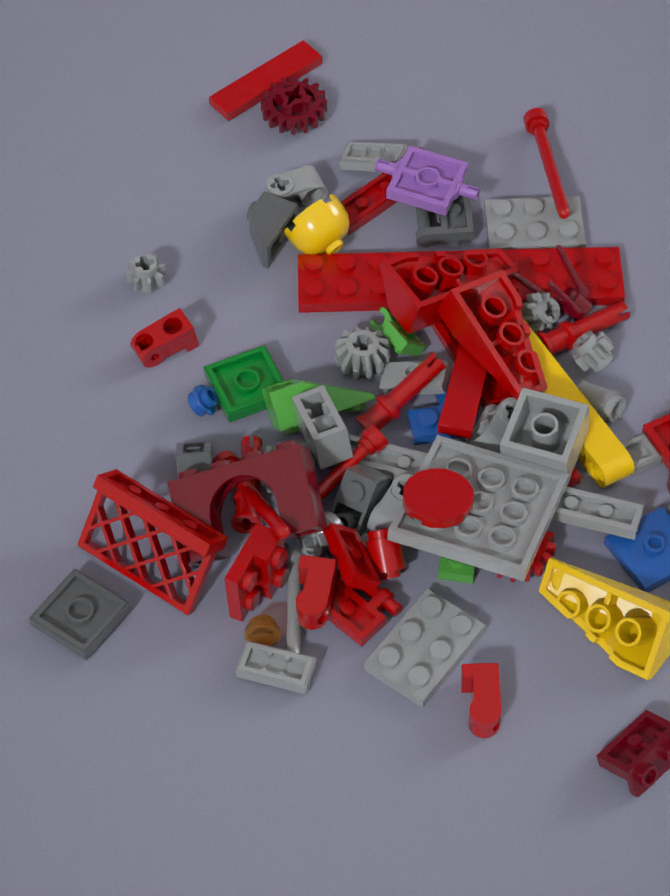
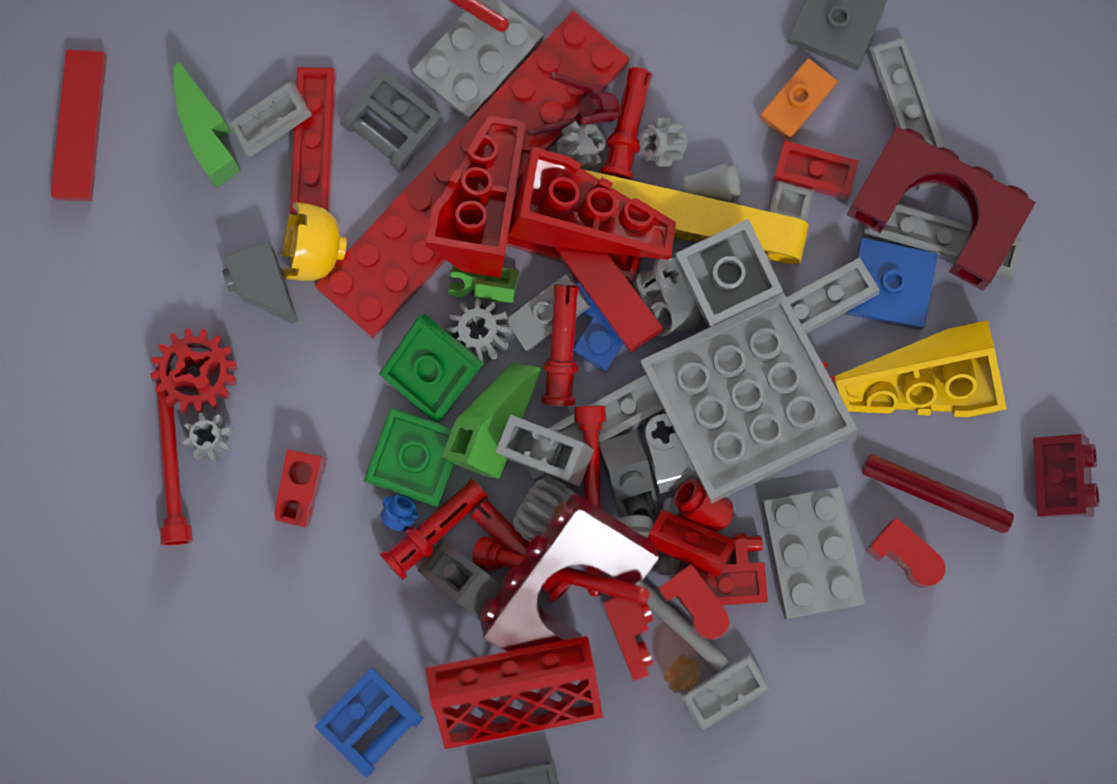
camera: 45 degrees left, 25 degrees up
(53, 478) = (359, 712): none -> blue plate
(72, 302) = (175, 527): none -> red piece
(178, 235) = (181, 379): none -> red gear
(197, 426) = (419, 541): none -> red pin
(293, 105) = (153, 128): dark red gear -> none
(298, 186) = (241, 215): light grey piece -> none
(311, 343) = (430, 368): none -> green plate
(330, 130) = (203, 128): none -> bright green slope
(427, 180) = (353, 104): medium lavender plate -> none
(438, 497) = (718, 428): red tile -> none
(545, 688) = (938, 493): none -> dark red axle

